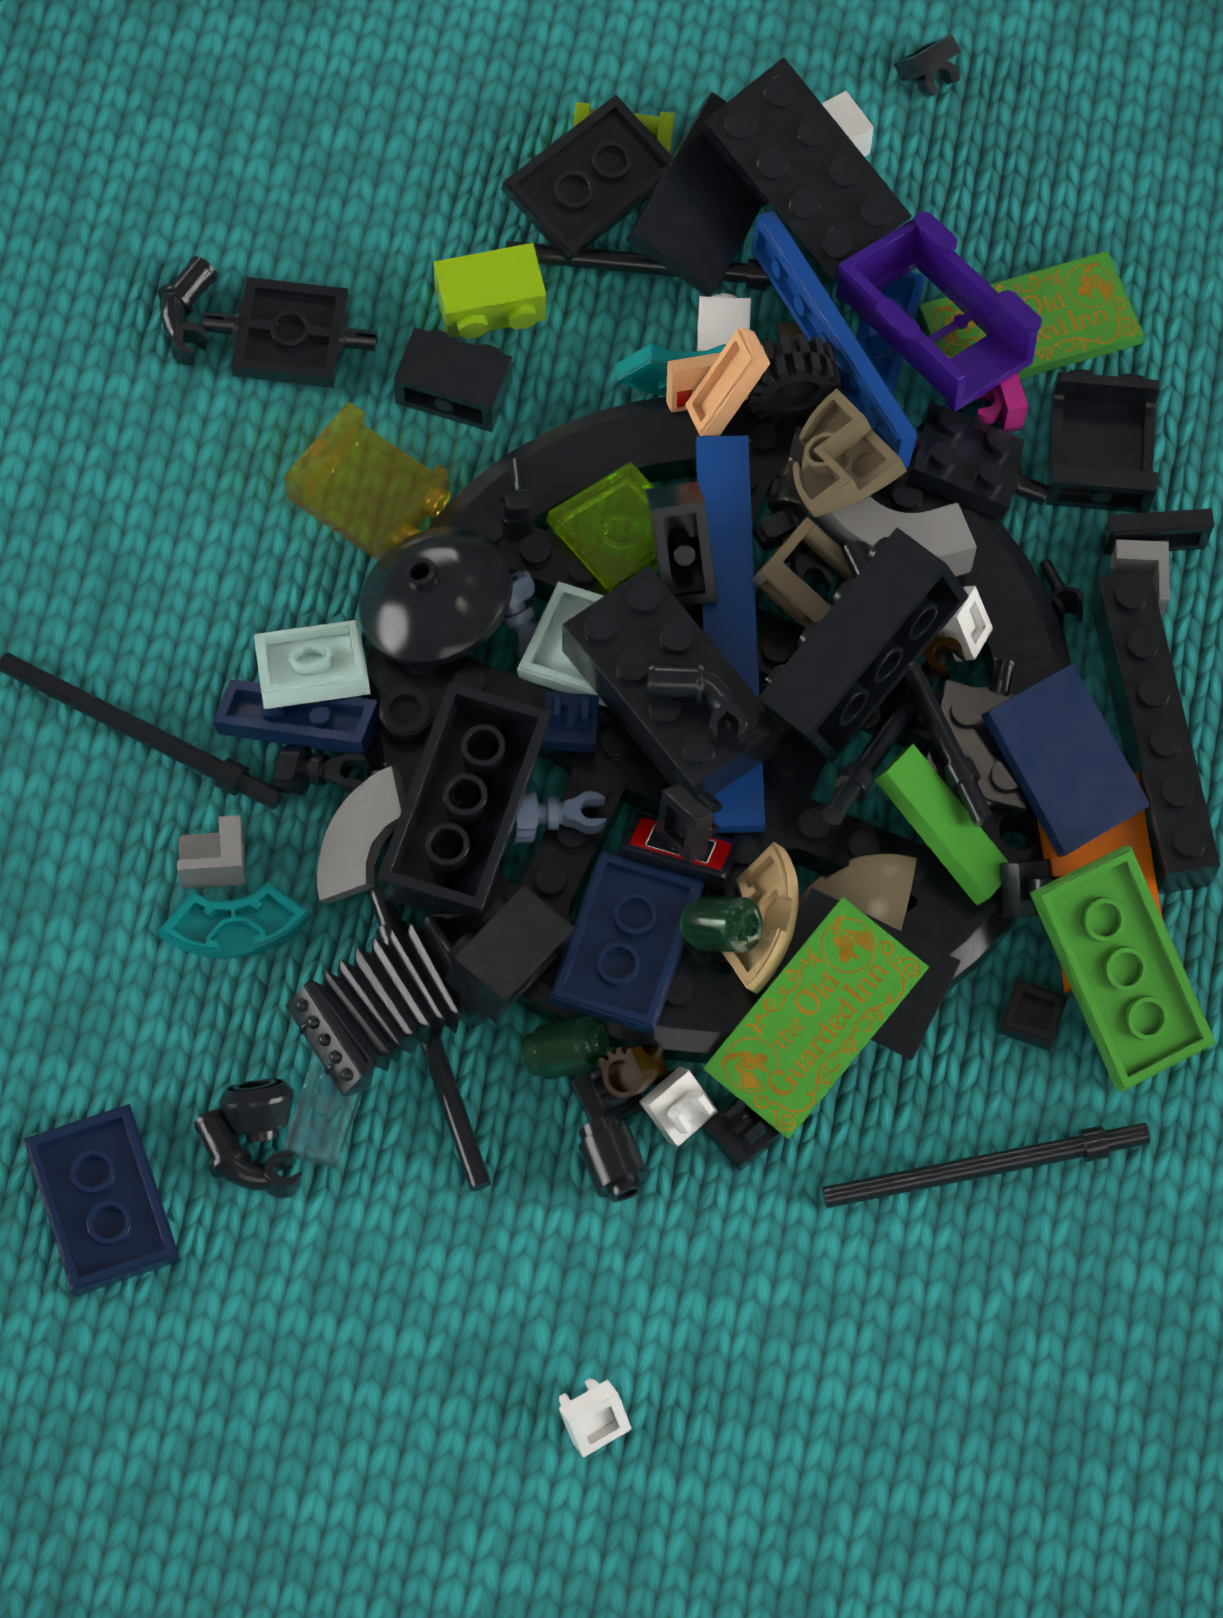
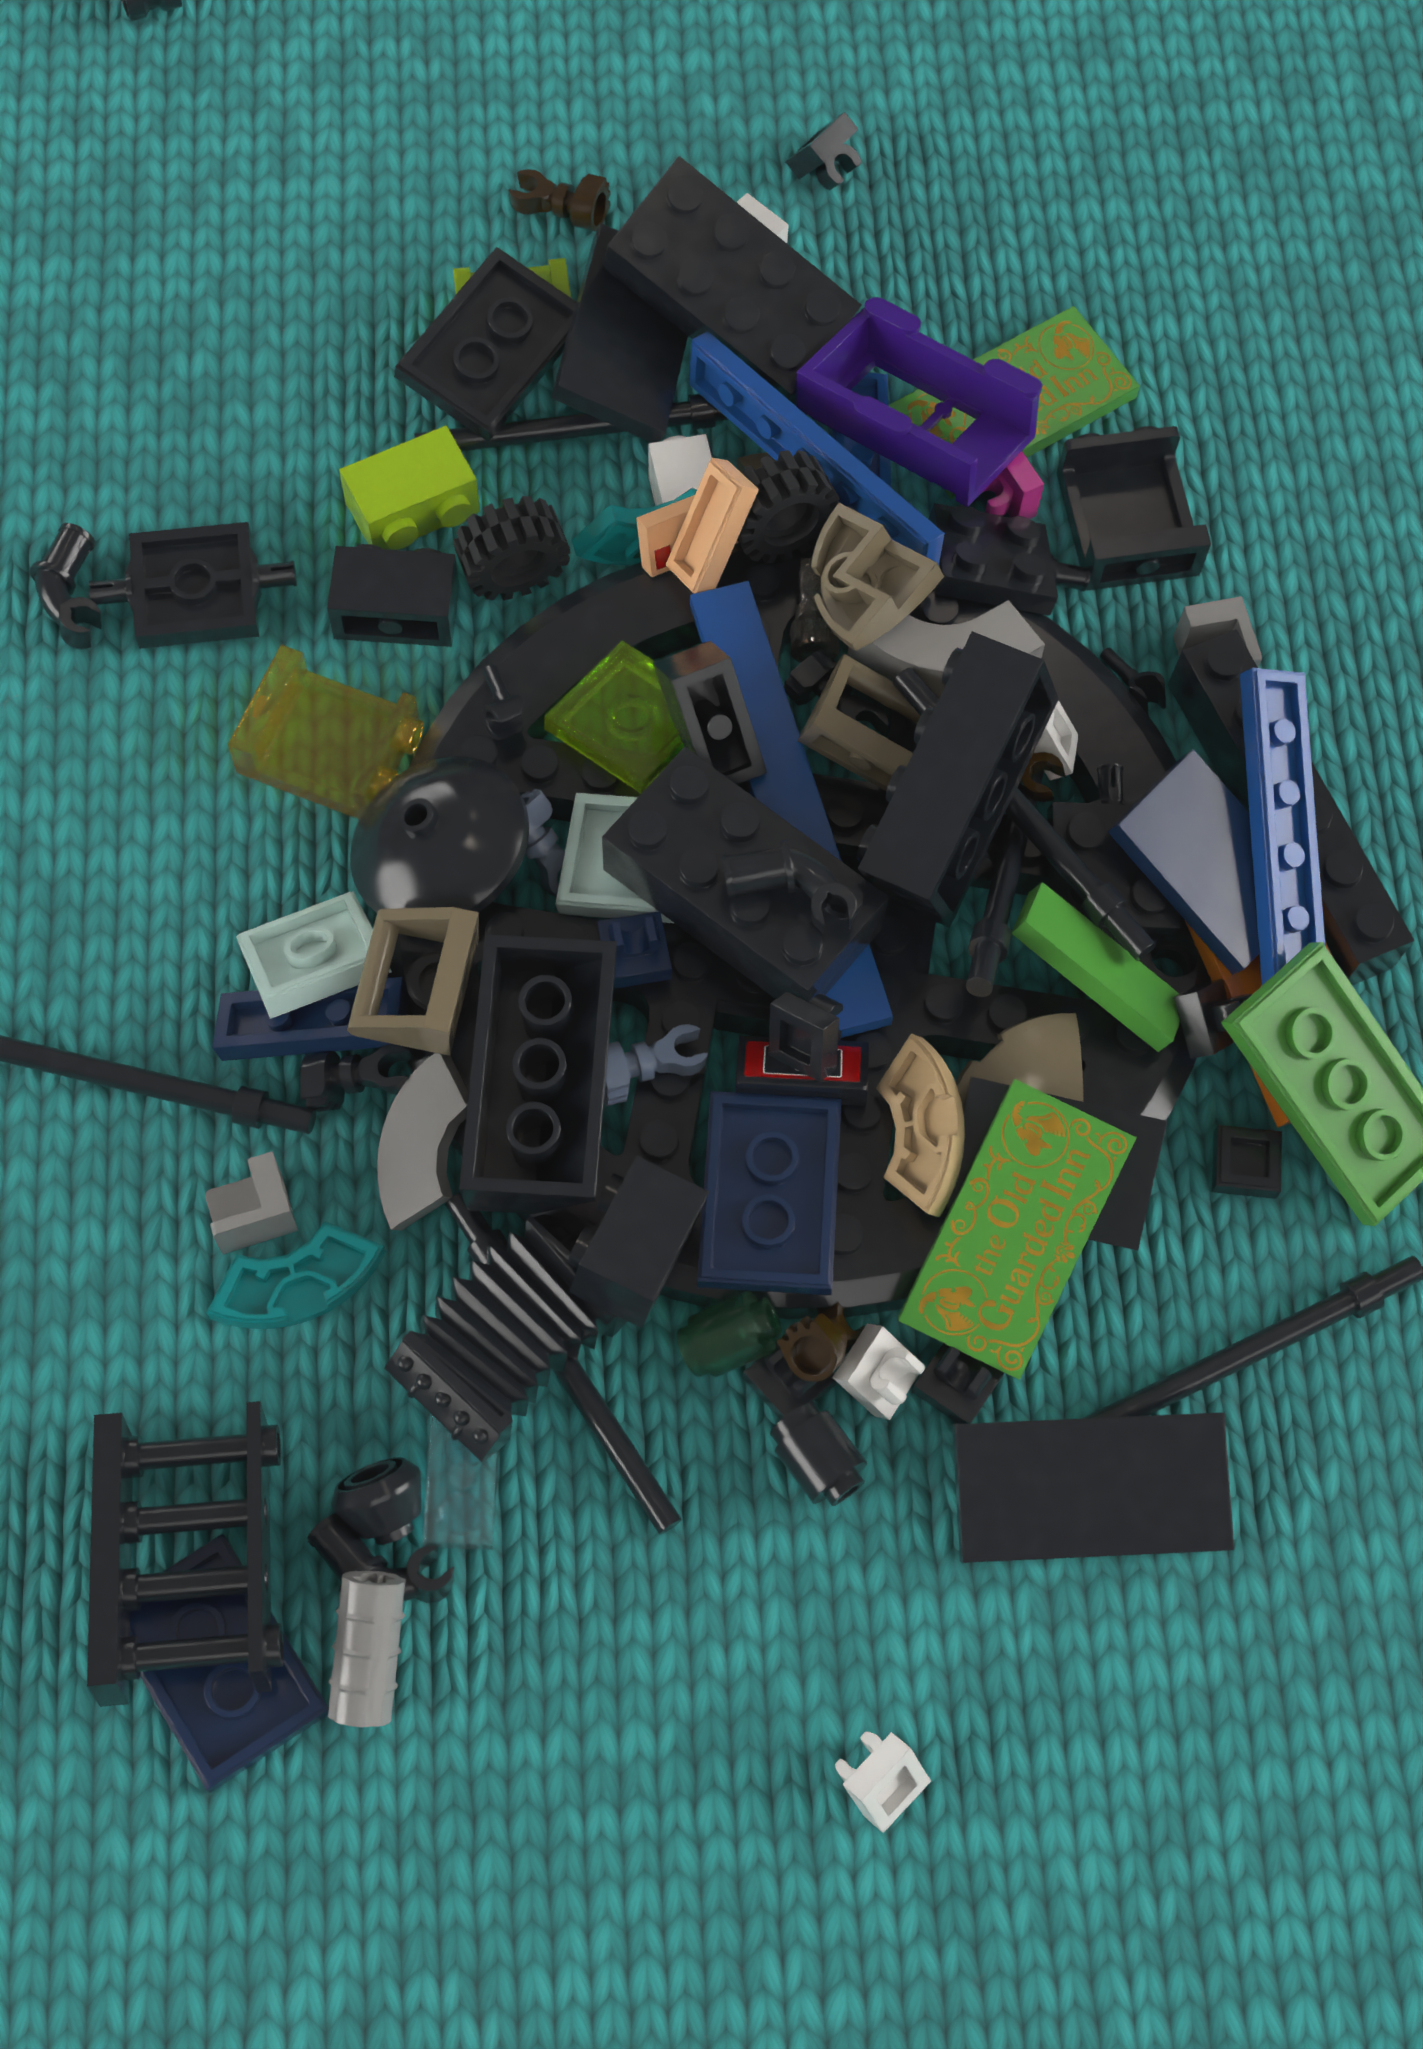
camera: 15 degrees left, 0 degrees up
(42, 1123) = (119, 1522): none -> black fence
(219, 1215) = (366, 1648): none -> light grey axle
(395, 746) = (437, 1028): none -> dark tan tile
(561, 361) = (512, 548): none -> black tyre
(706, 67) = (586, 204): none -> dark brown piece
(722, 924) = (880, 1145): clear green brick -> none
(825, 1238) = (1092, 1487): none -> black tile
(1134, 734) = (1281, 815): none -> blue tile
(1180, 528) = (1250, 578): black tile -> none

